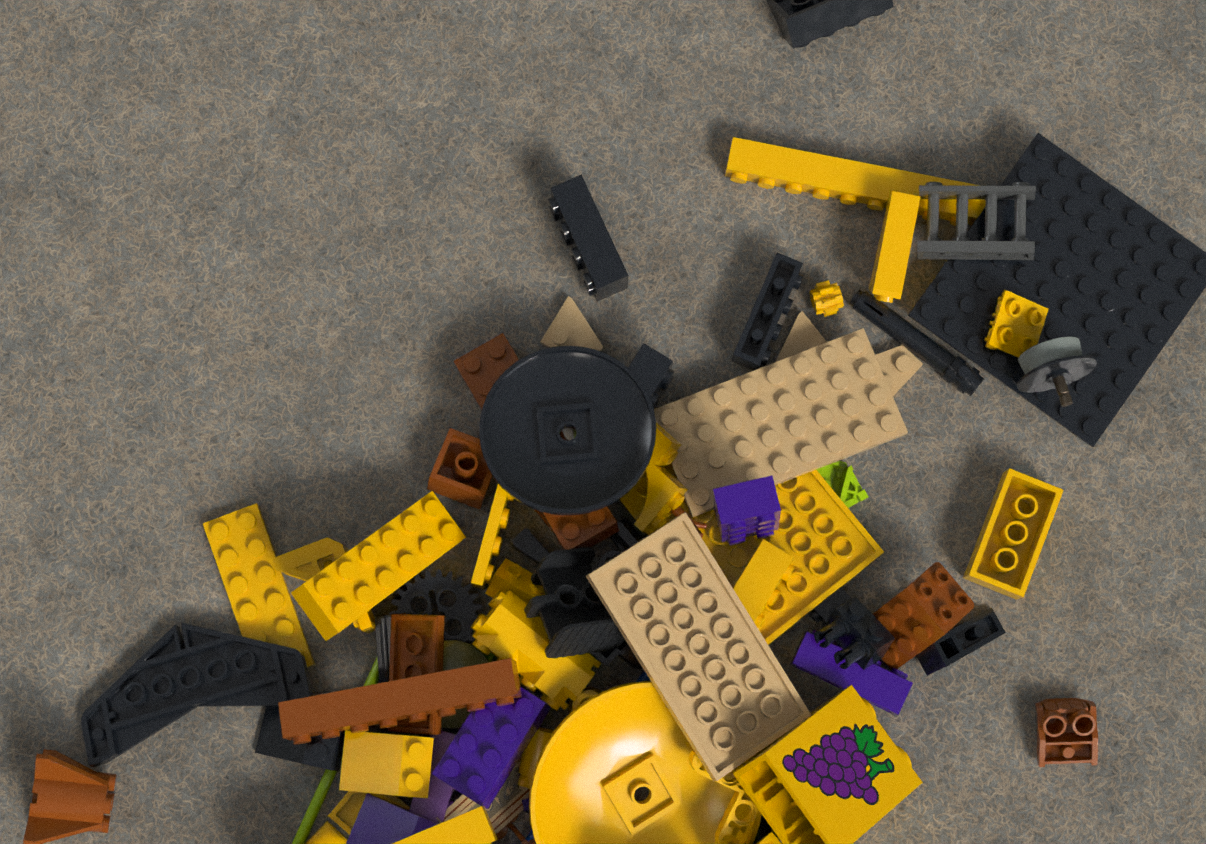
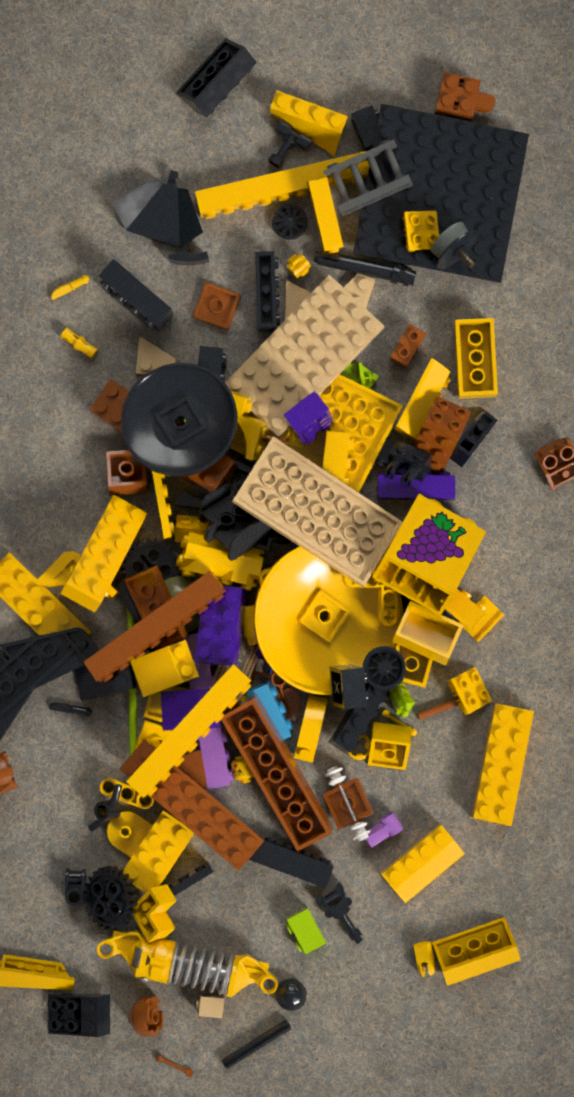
camera: 25 degrees left, 5 degrees up
(233, 755) = (62, 707): none -> black piece
(484, 267) = (79, 343): none -> yellow pin
(503, 187) = (69, 286): none -> yellow piece
(673, 144) = (160, 212): none -> black panel
(675, 219) = (182, 258): none -> black slope
(691, 302) = (216, 306): none -> dark orange tile
(841, 235) = (289, 222): none -> black wheel
(893, 127) = (292, 139): none -> black bar
(915, 556) = (419, 405): none -> yellow slope
(926, 474) = (407, 346): none -> dark orange brick
(931, 114) = (316, 122): none -> yellow wedge
(1002, 152) = (365, 124): none -> black brick
(1150, 174) = (461, 96): none -> dark orange brick

